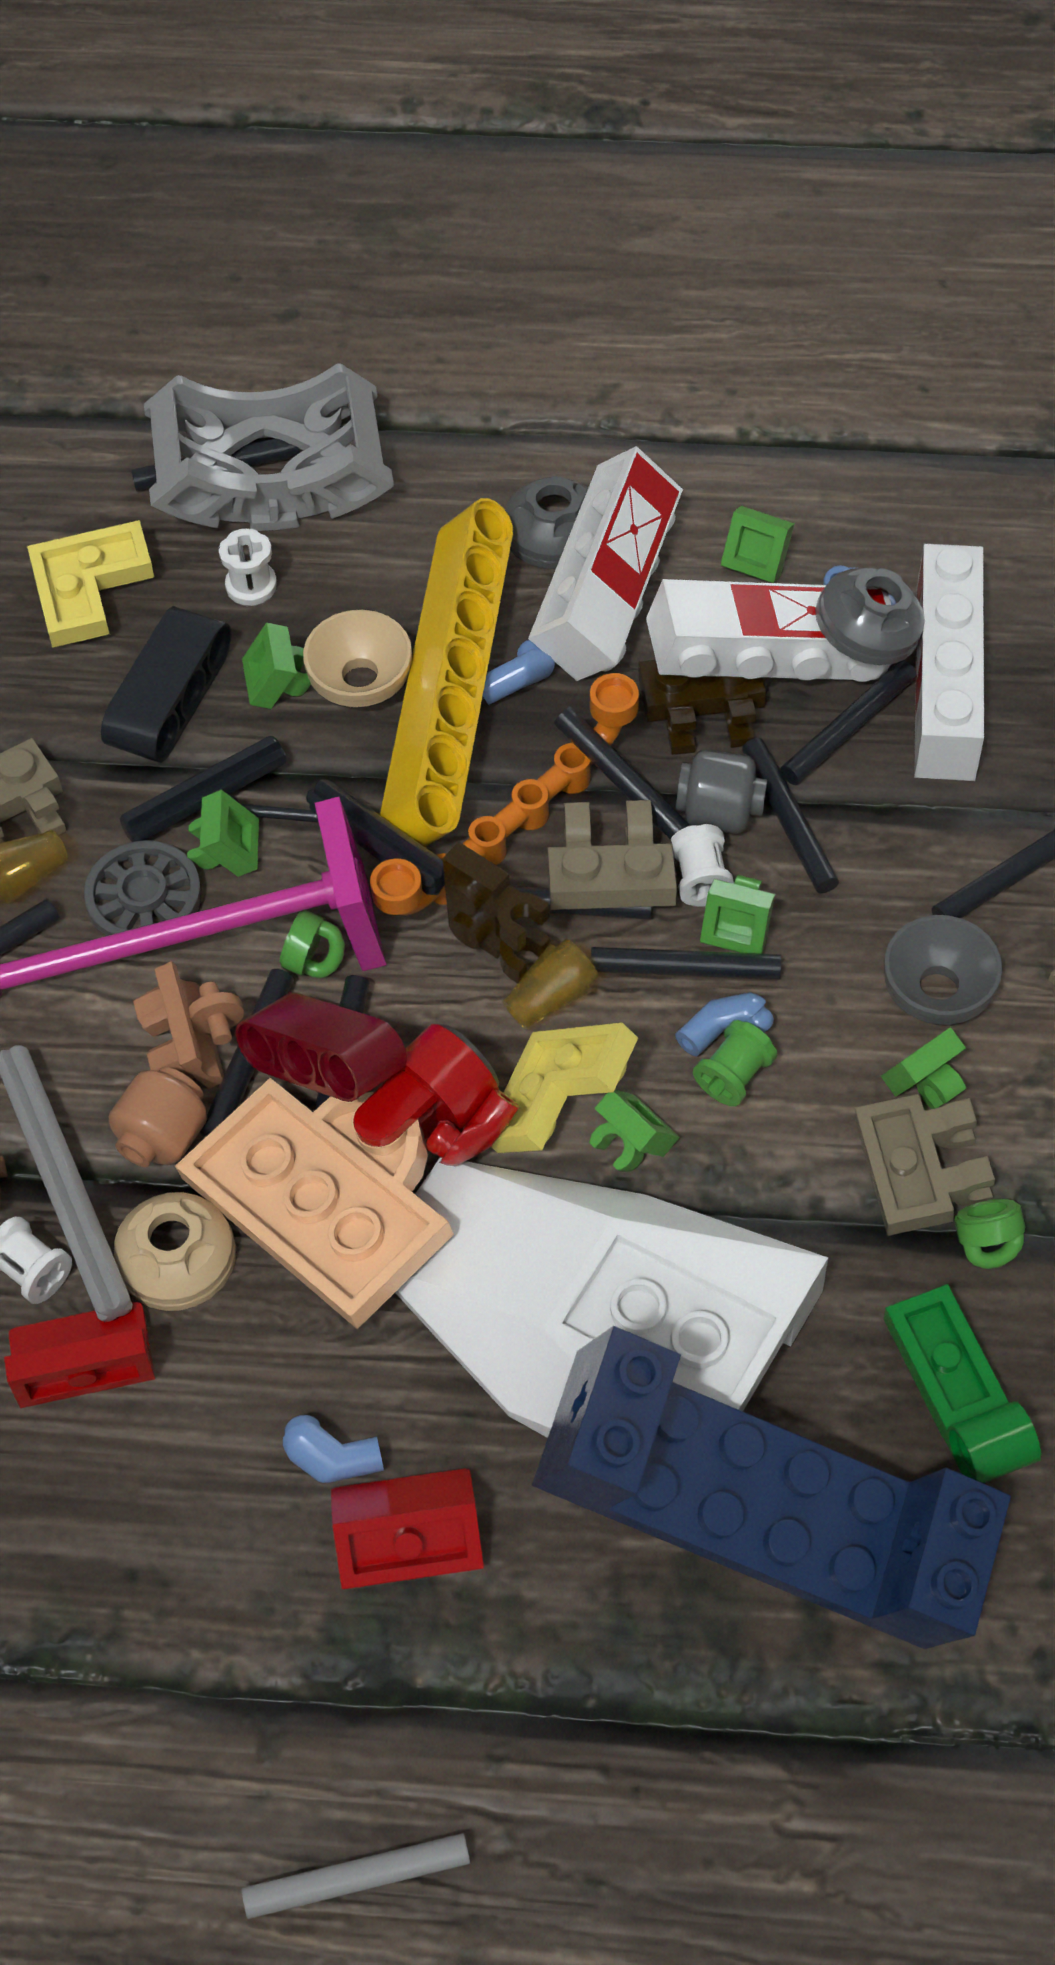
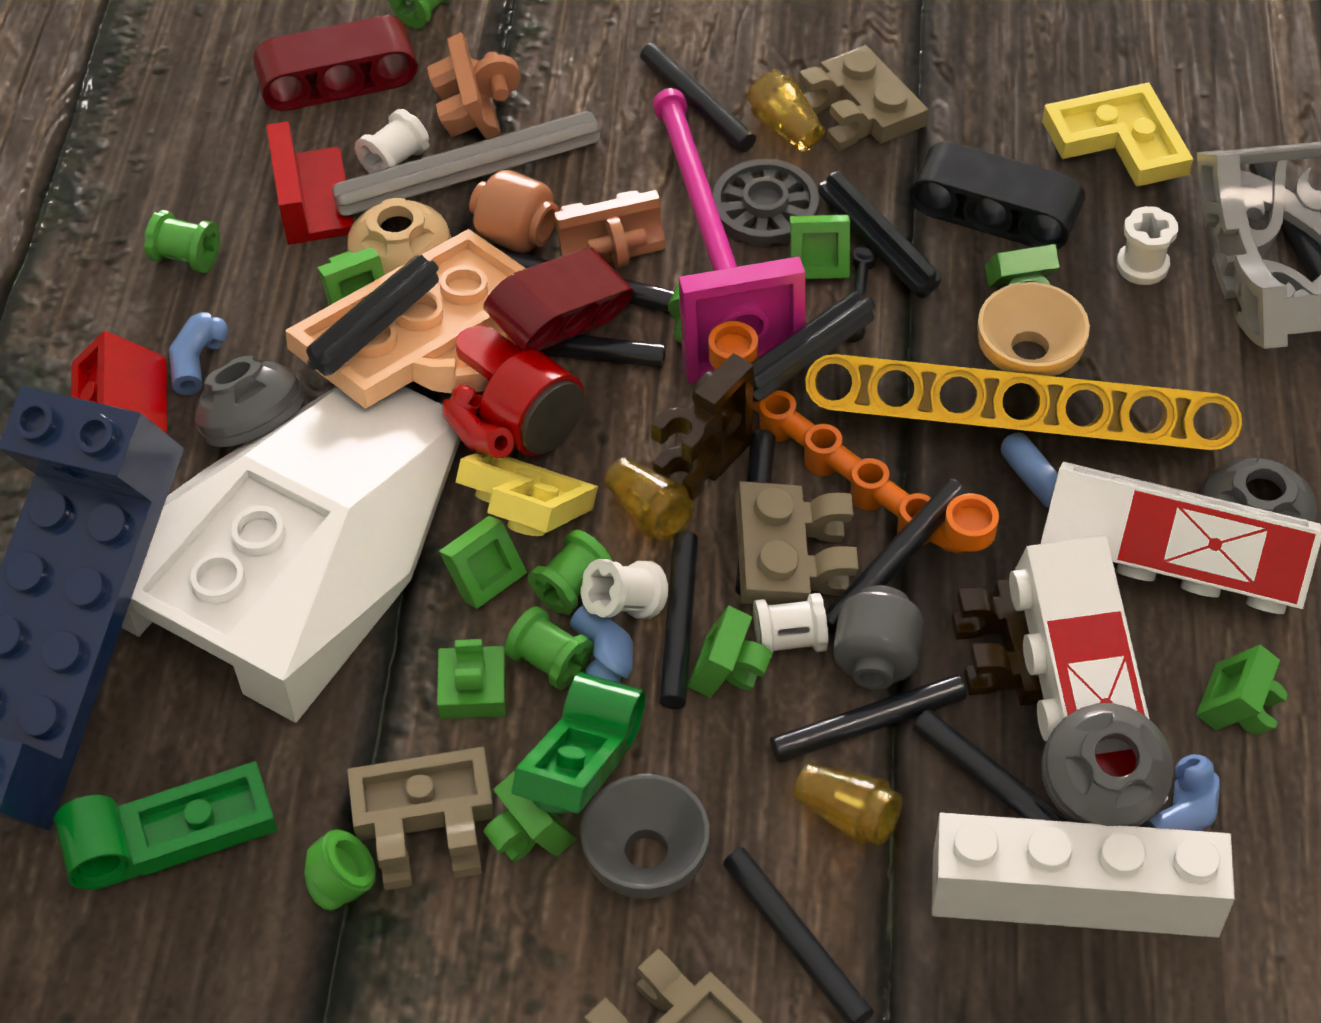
camera: 90 degrees right, 5 degrees down
(164, 1480) = (182, 241): none -> bright green bush
(249, 1281) = (349, 273): none -> bright green tile
(341, 1220) = (372, 315): none -> black axle
(457, 1374) = (246, 401): none -> dark grey piece
(654, 1052) = (562, 578): none -> bright green bush
(674, 993) = (613, 588): none -> white bush
(766, 1136) = (471, 680): none -> bright green tile
(822, 1020) = (583, 746): none -> green plate
(886, 822) = (851, 802): none -> clear yellow cone

